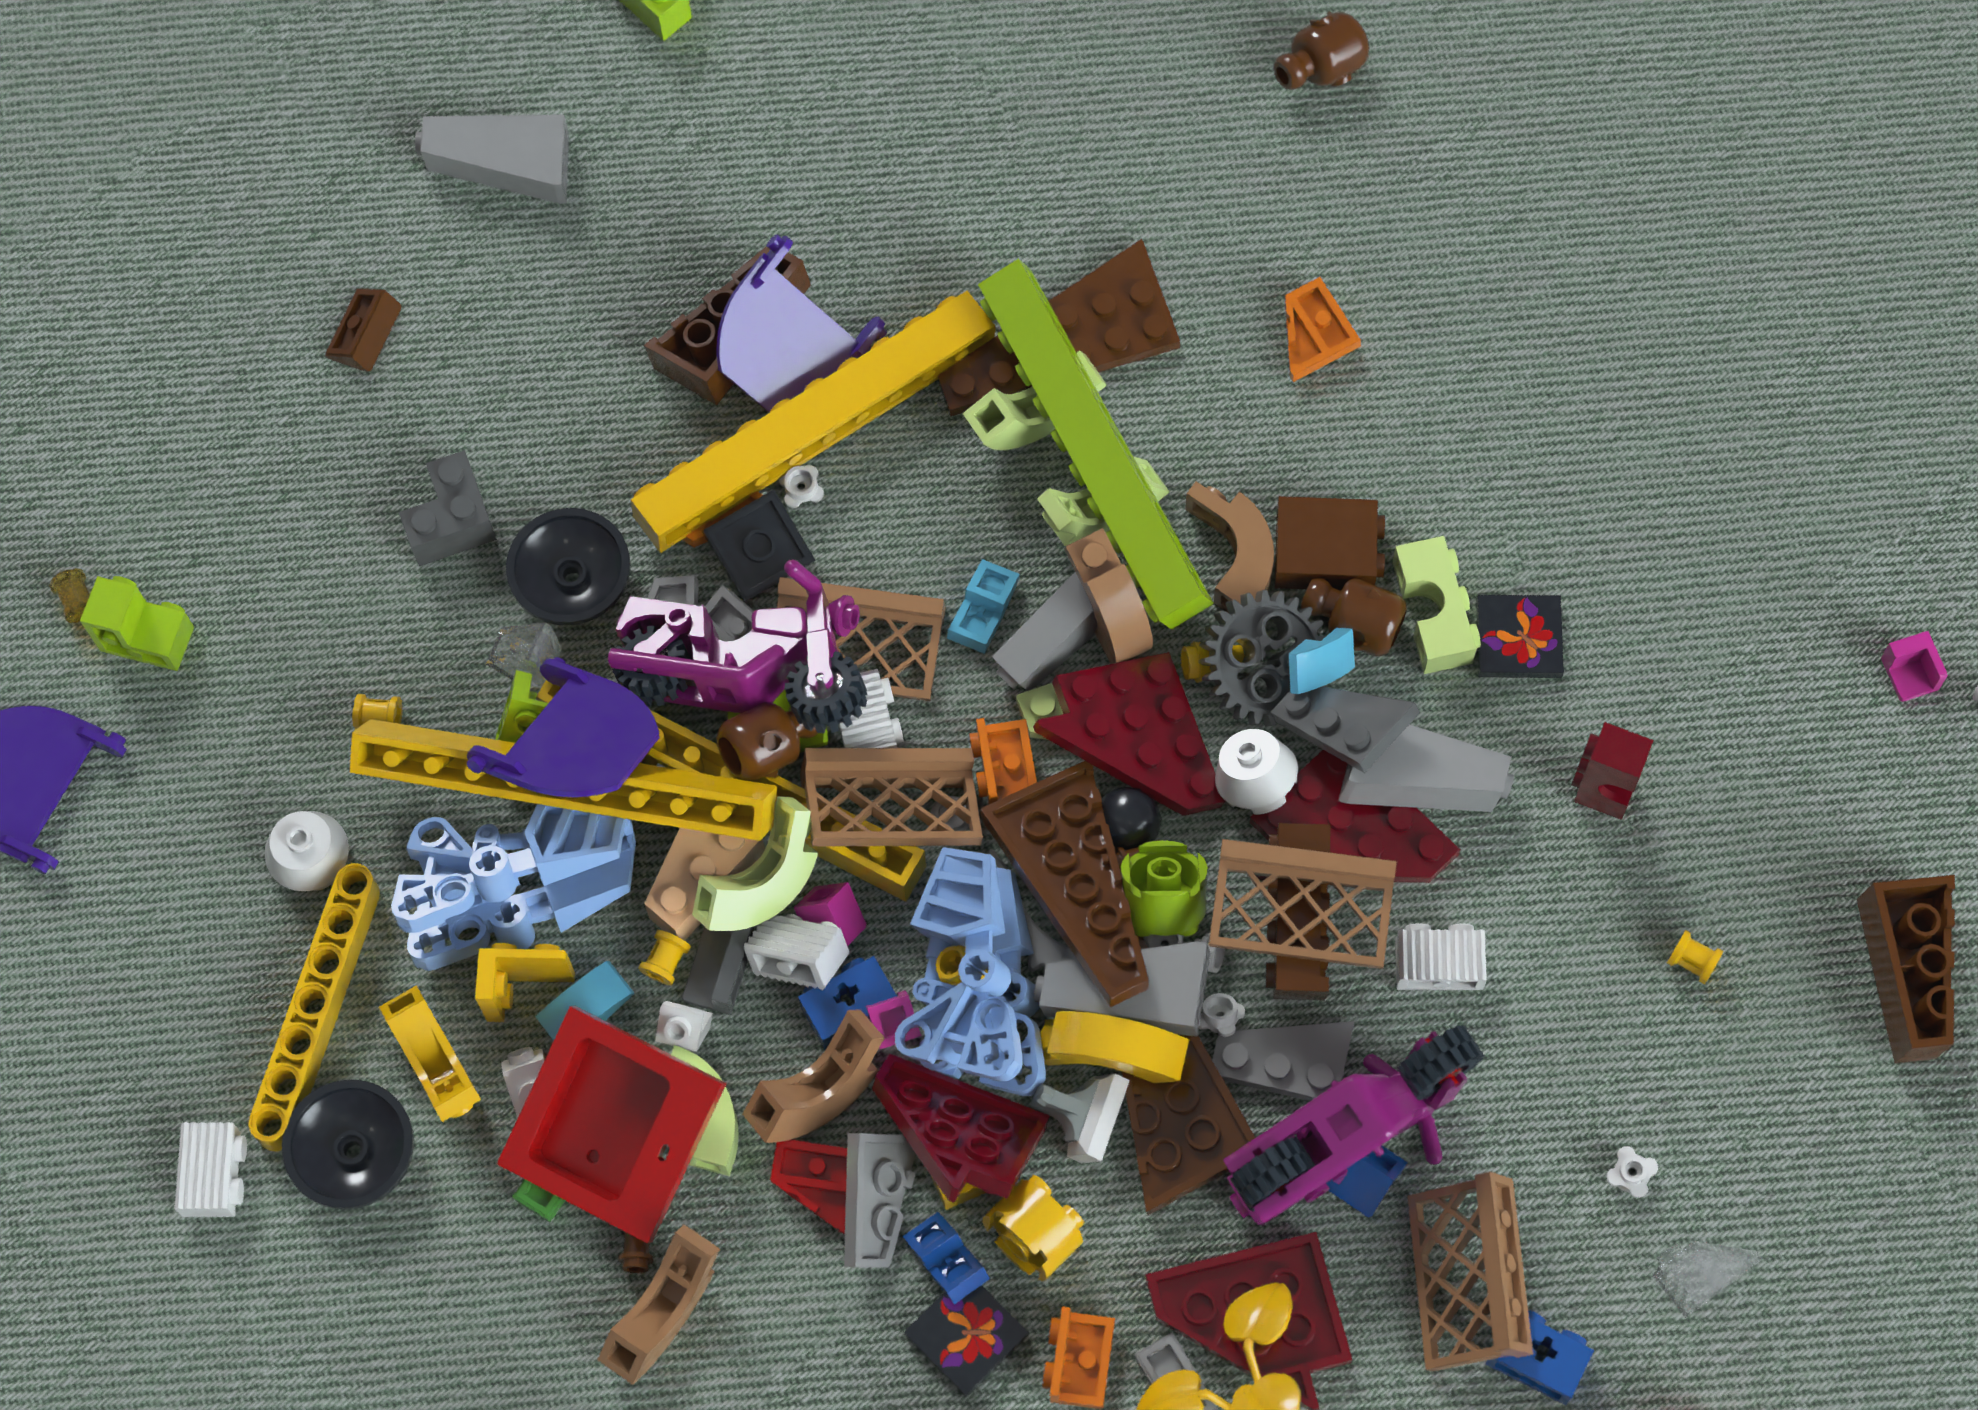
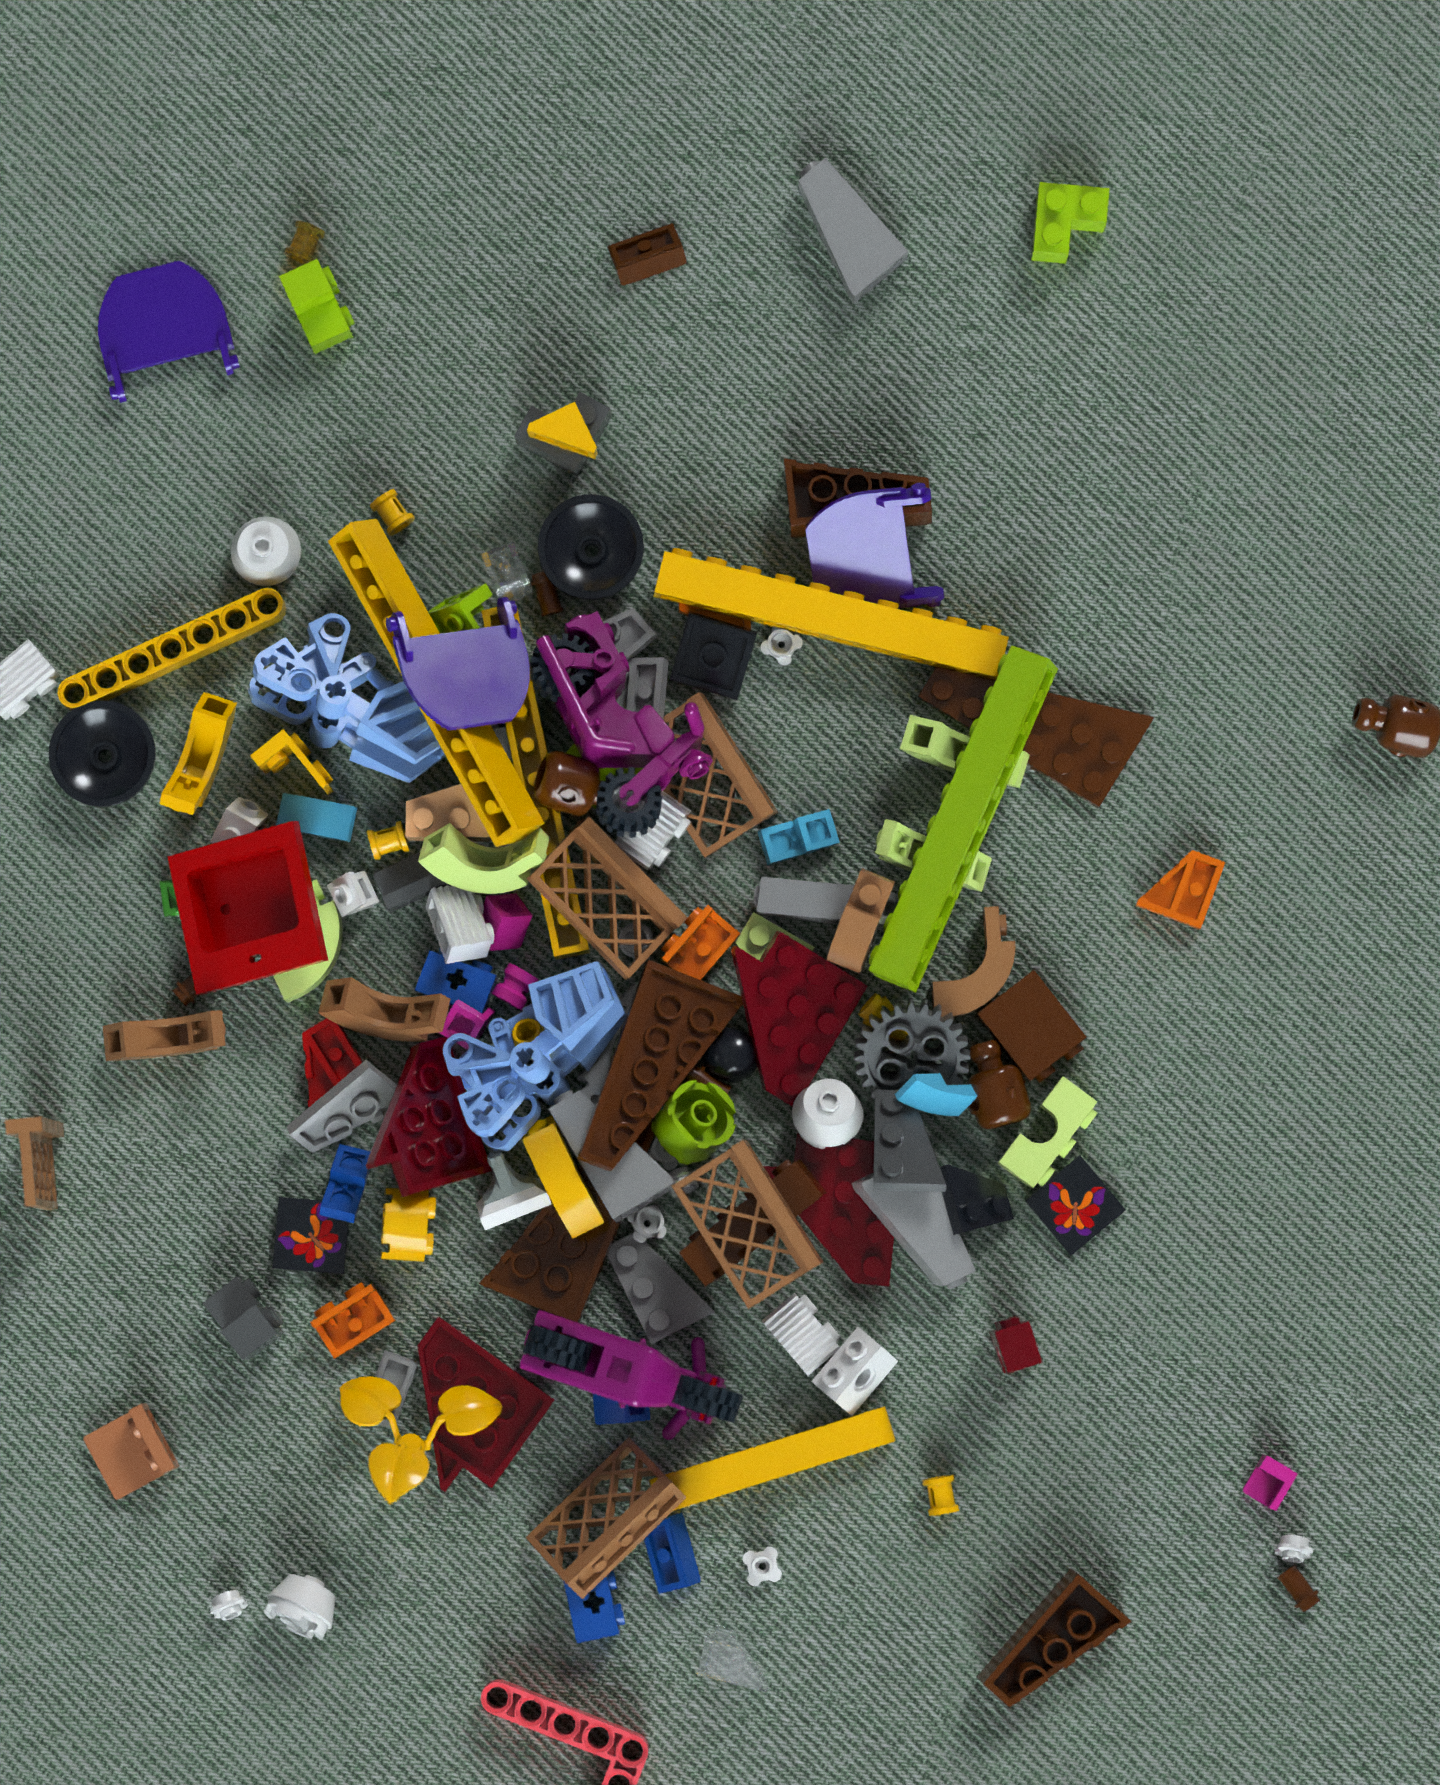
camera: 50 degrees right, 15 degrees up
(450, 492) = (565, 430): none -> yellow slope
(577, 643) = (546, 594): none -> reddish brown pin
(899, 953) = (514, 986): none -> dark pink wheel
(1447, 709) = (973, 1200): none -> black wing
(1516, 937) = (854, 1371): none -> white brick
(1544, 1065) = (782, 1456): none -> yellow beam
(1555, 1249) = (672, 1555): none -> blue slope

